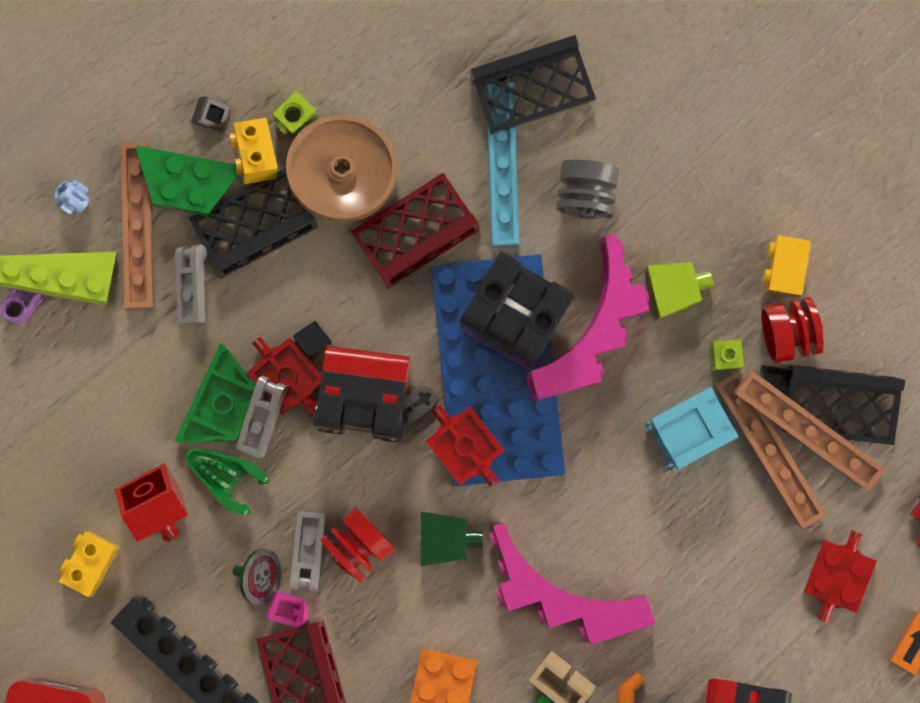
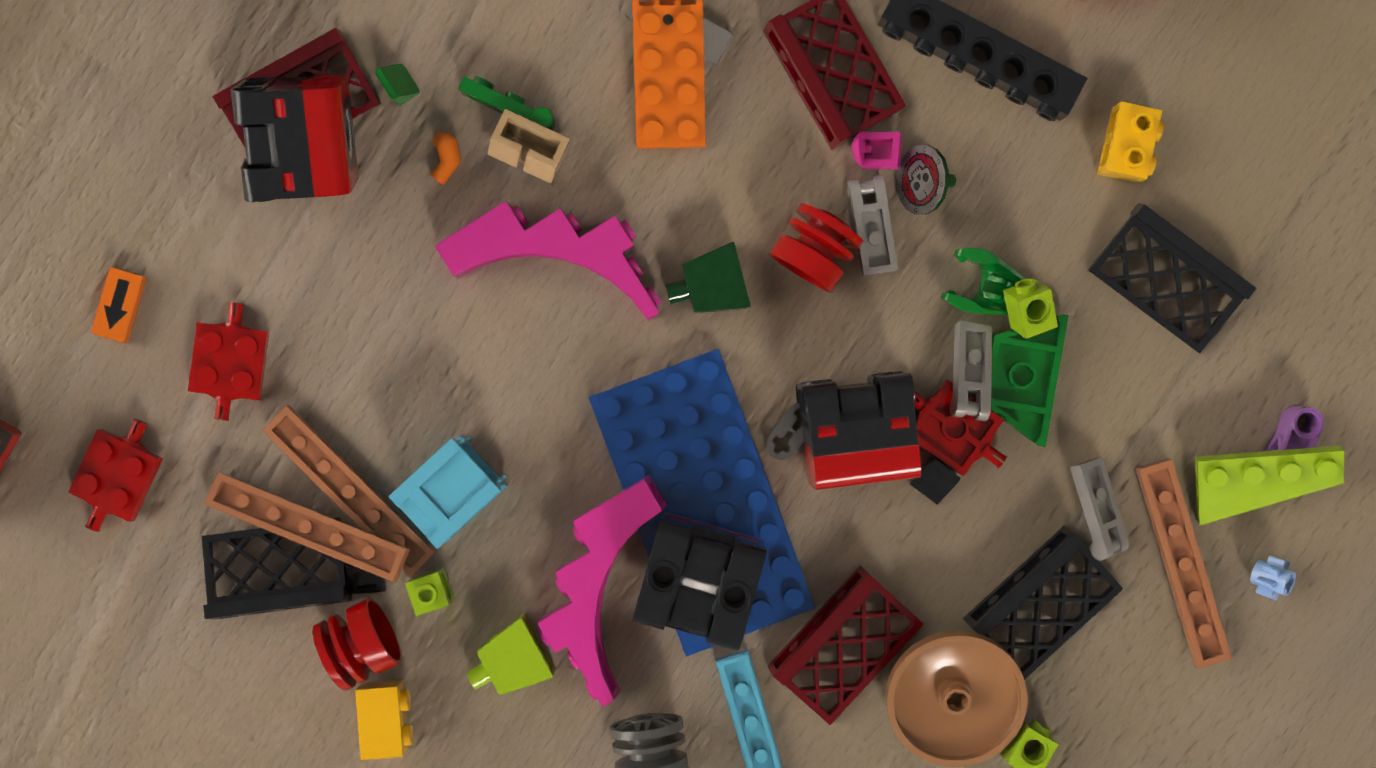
camera: 170 degrees right, 5 degrees up
(62, 458) = (1188, 252): none -> black fence
(152, 504) = (1076, 230): red brick -> none
(184, 180) = (1141, 633): green wing -> none
(201, 444) = (1039, 316): none -> lime brick
(210, 113) = (1130, 723): black slope -> none
(254, 150) = (1067, 692): yellow brick -> none
(465, 445) = (718, 399): red plate -> none

